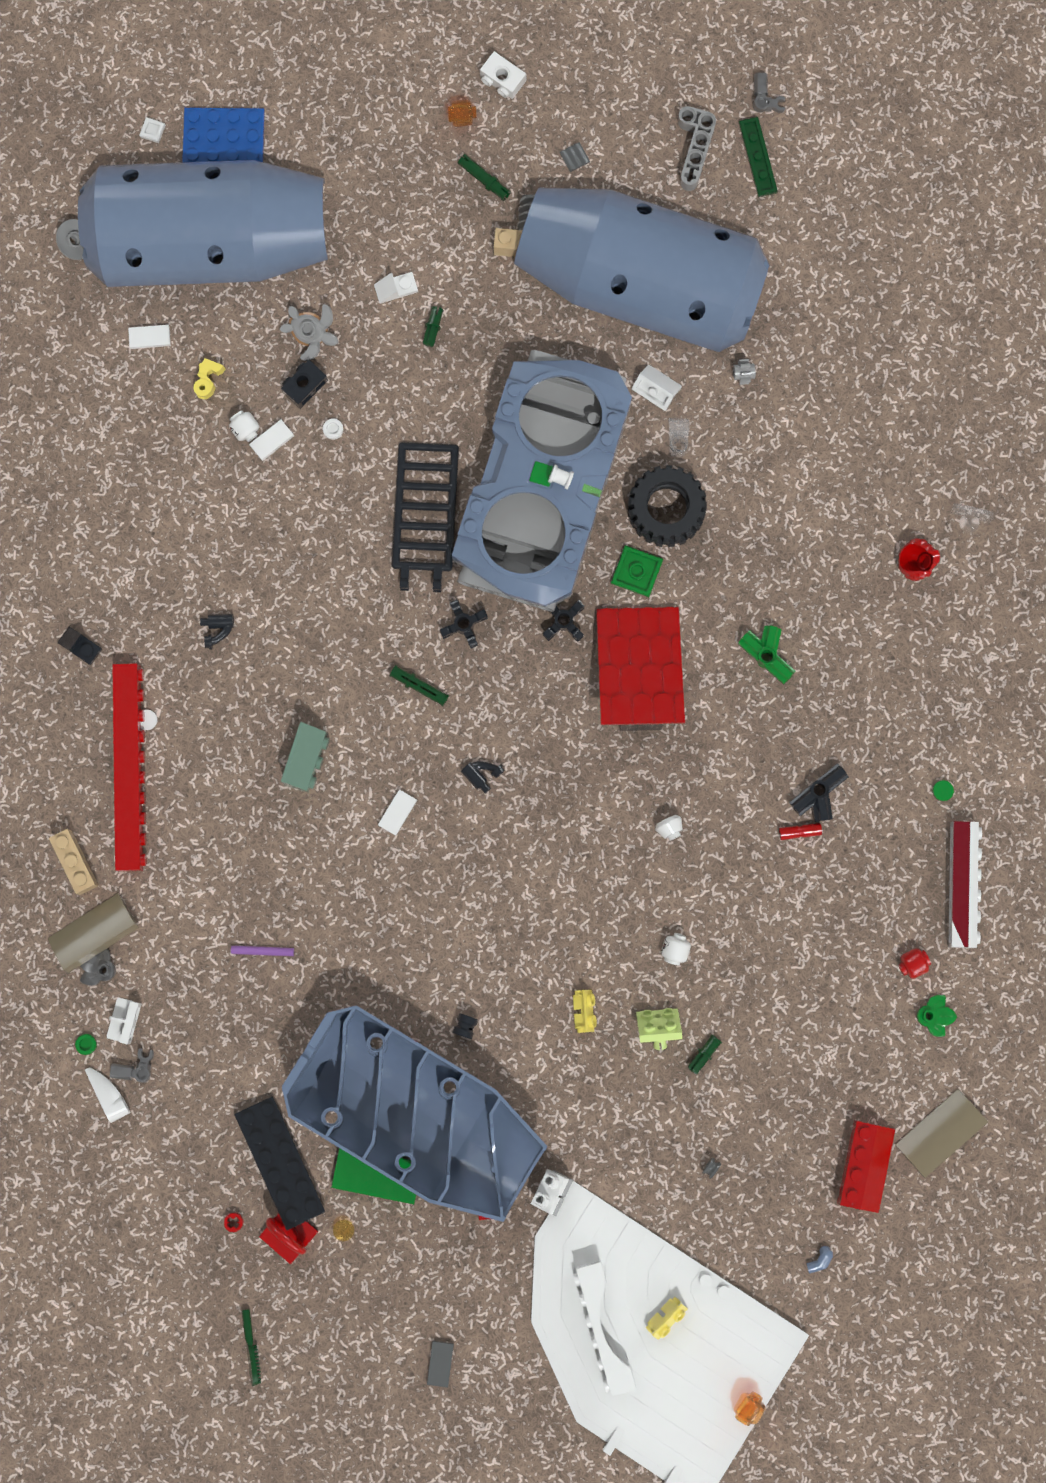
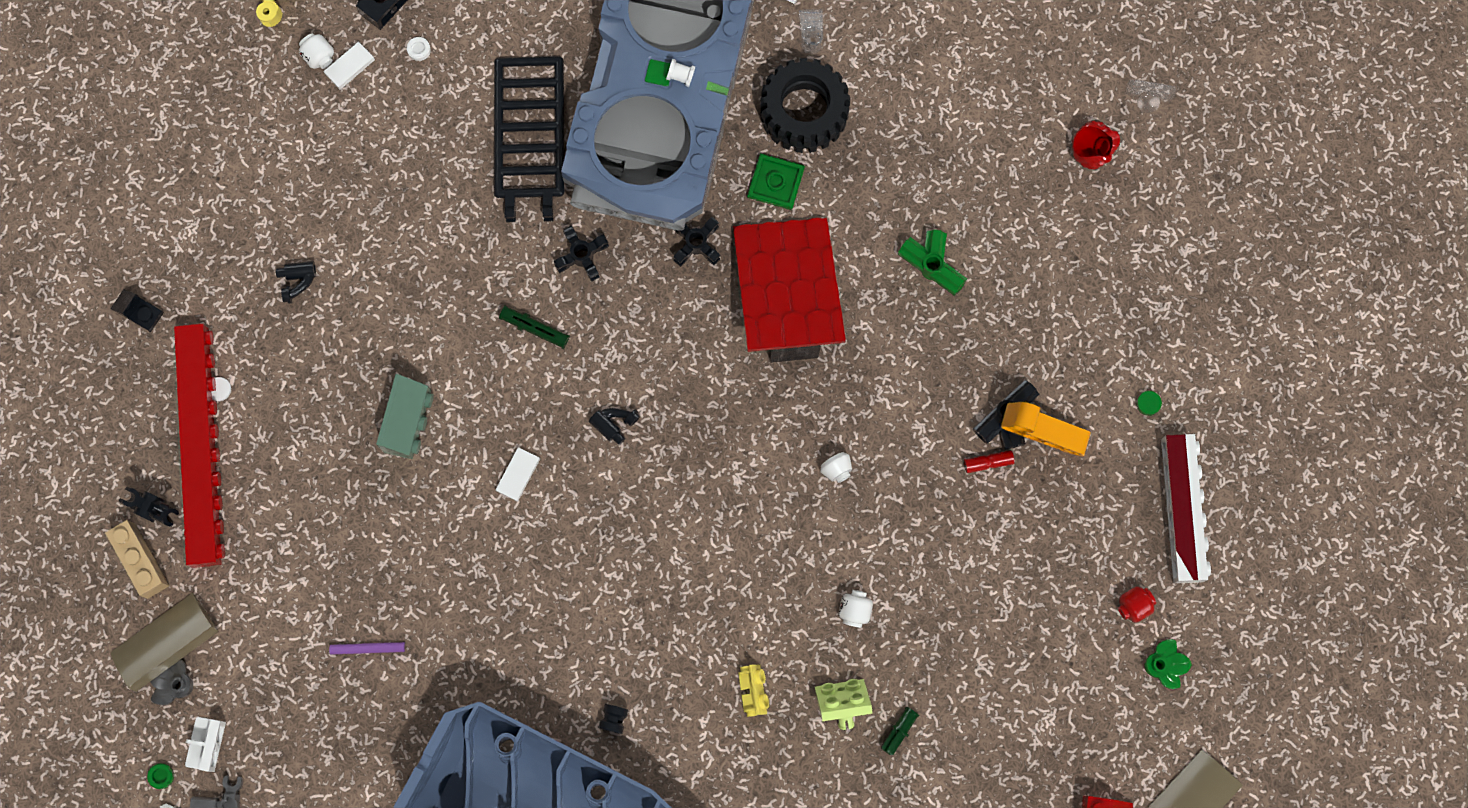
camera: 10 degrees left, 5 degrees down
(85, 818) = (149, 506): none -> black pin
(852, 809) = (1028, 422): none -> light orange beam

